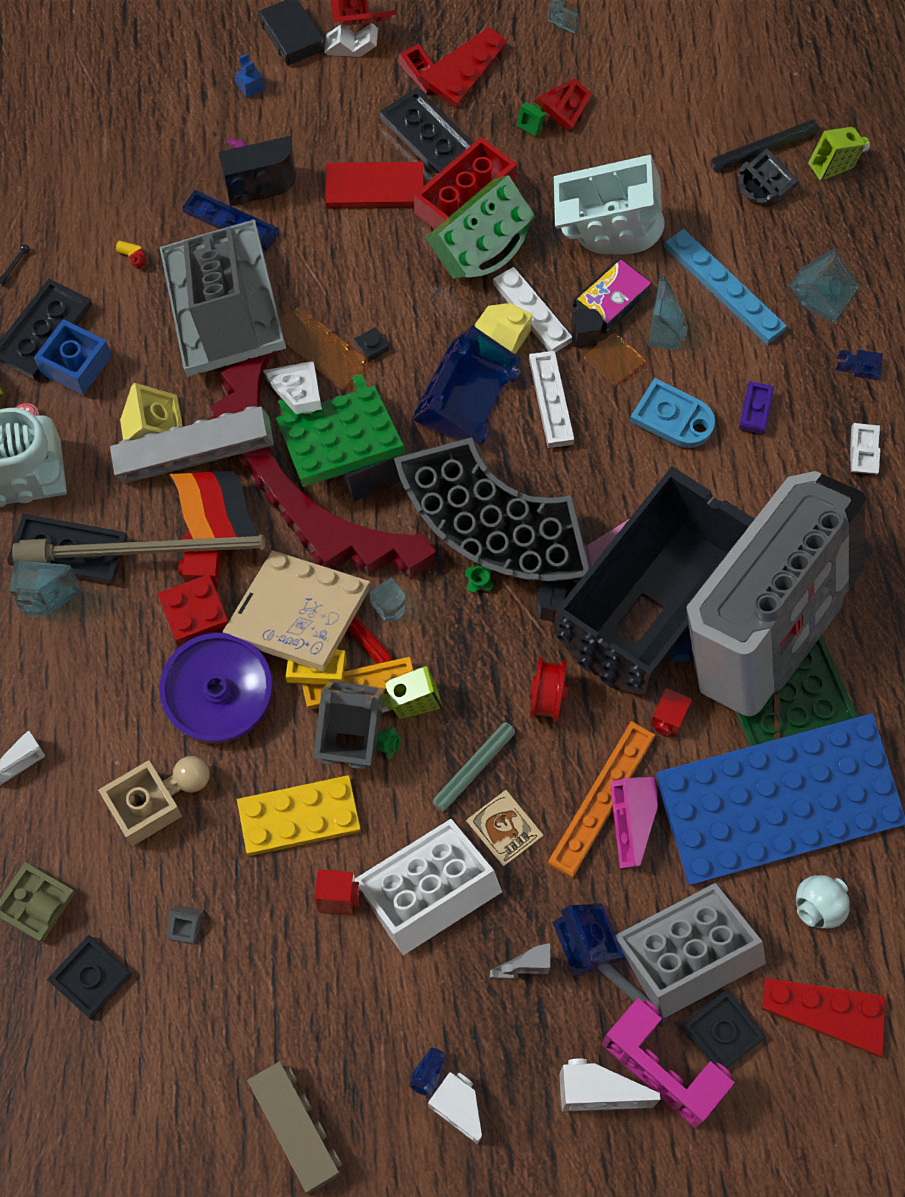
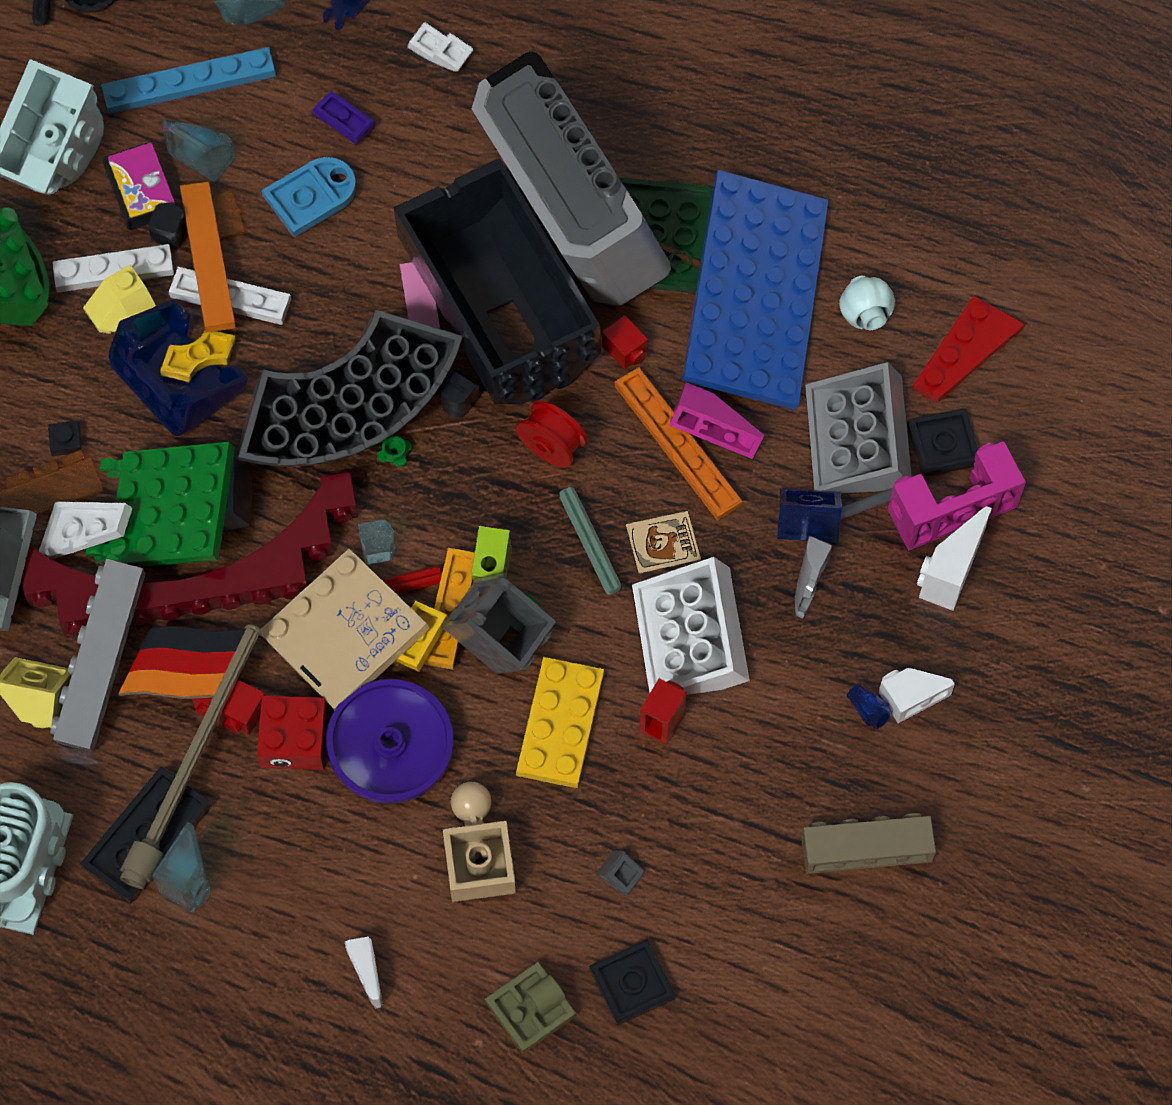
camera: 65 degrees left, 0 degrees up
(497, 406) = (188, 359): none -> yellow tile
(572, 366) = (207, 257): none -> orange tile

